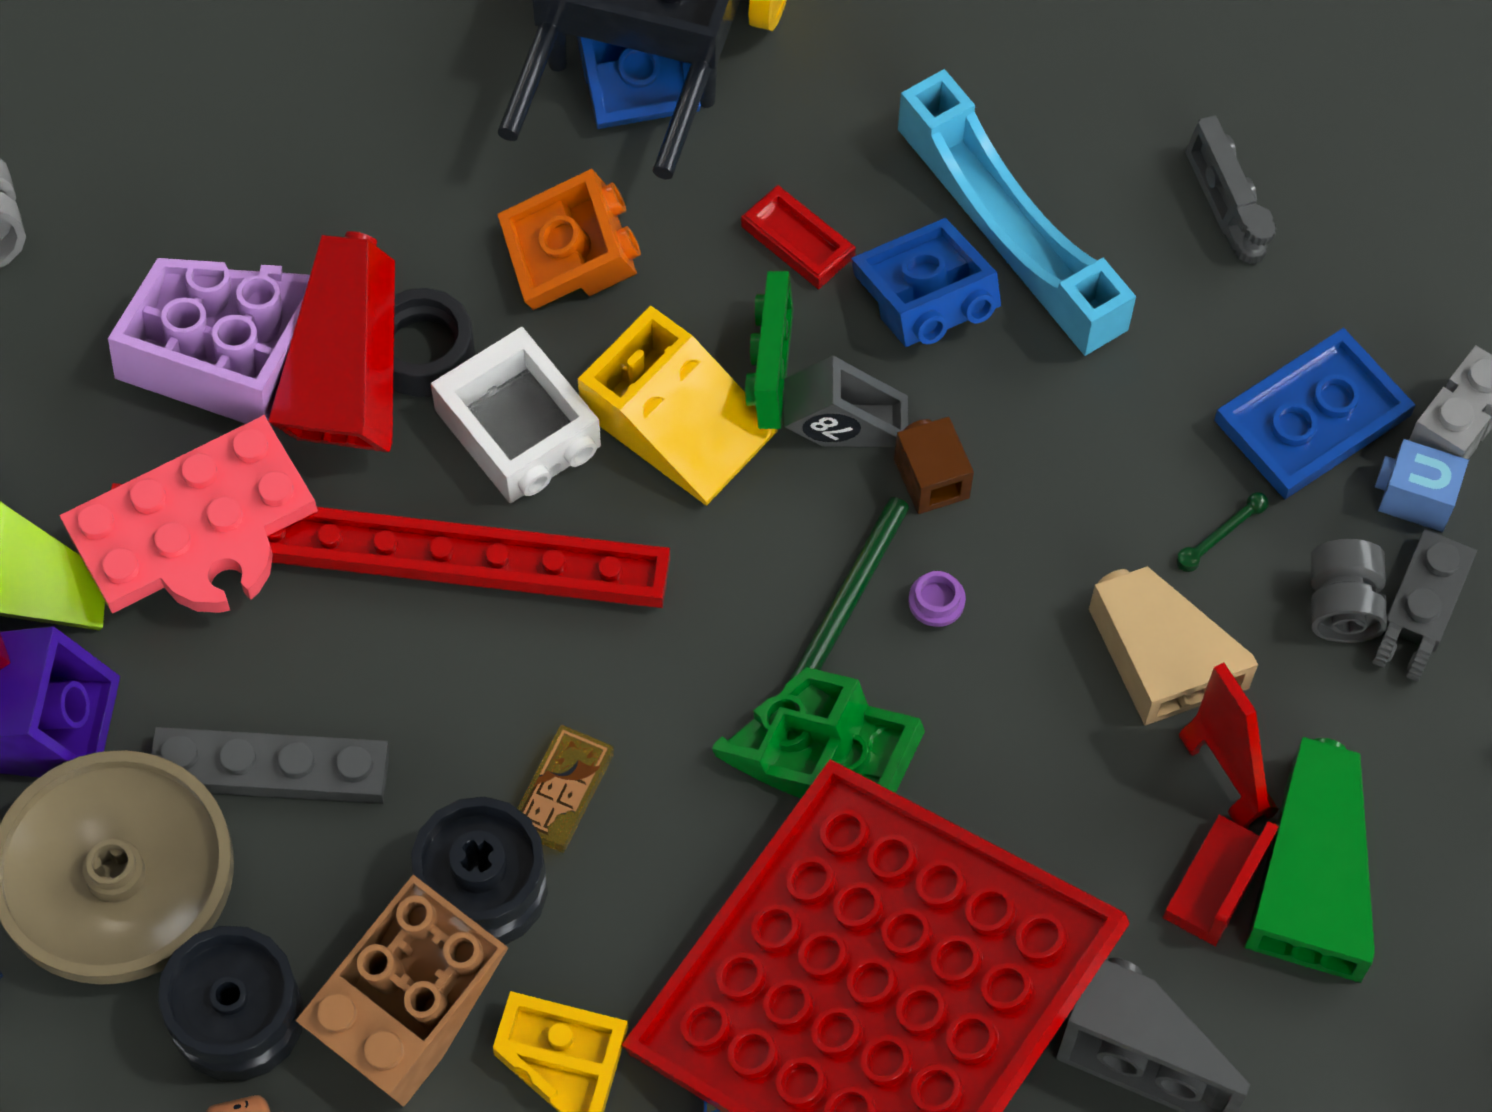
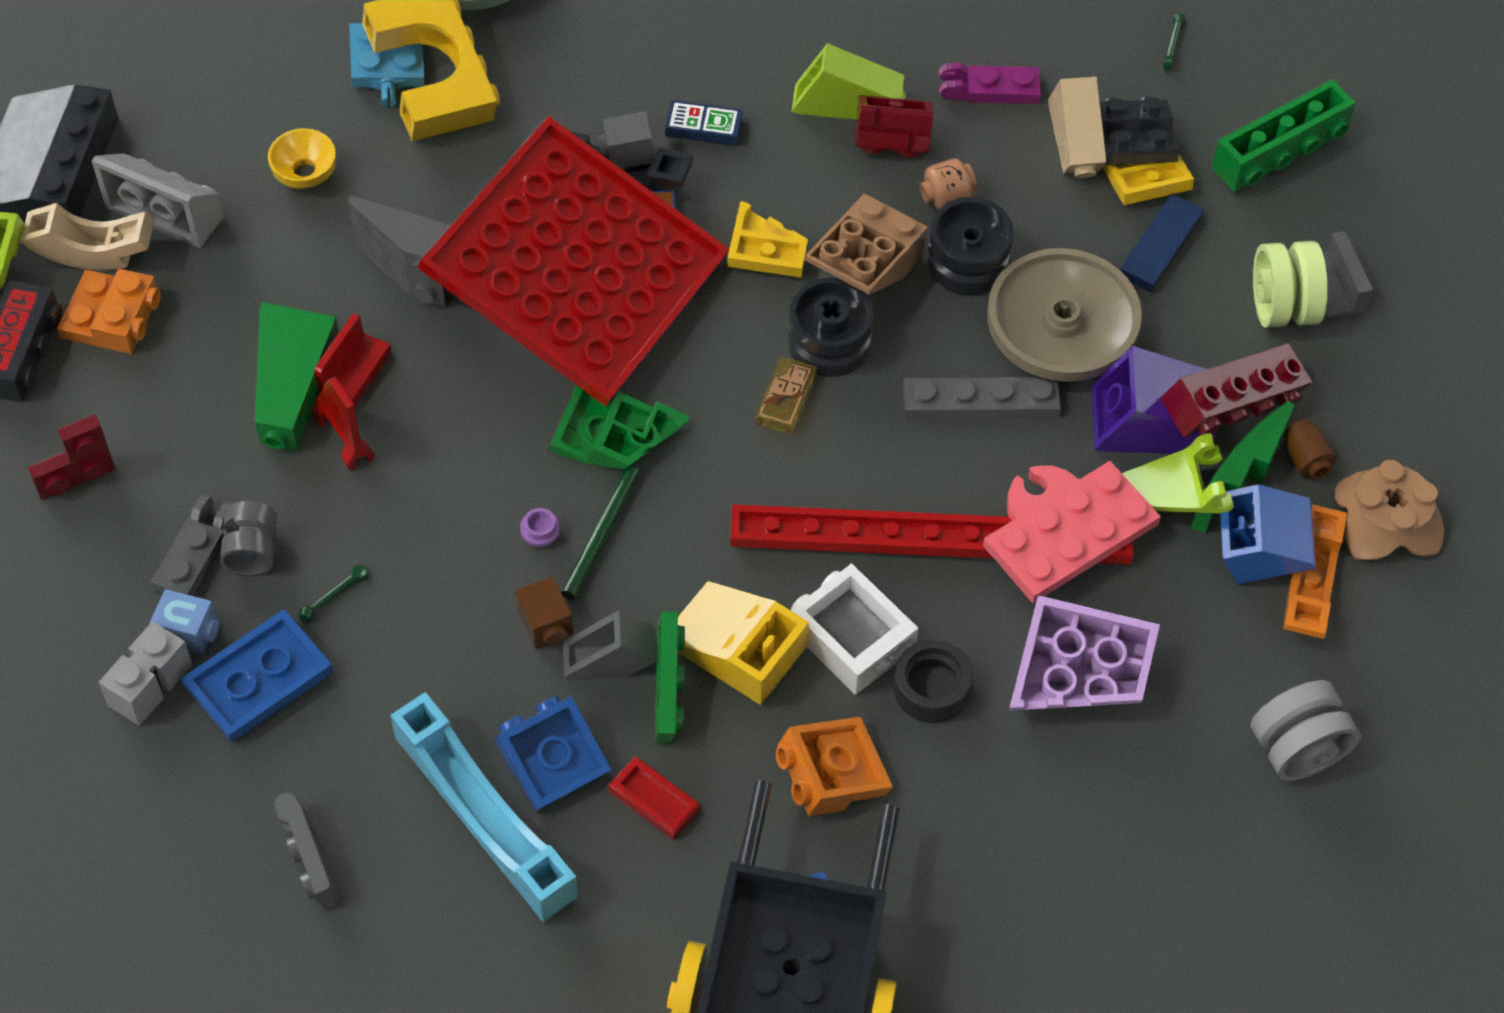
camera: 175 degrees right, 5 degrees down
(342, 350) = (986, 641): red slope -> none
(1162, 643) = (379, 498): tan slope -> none

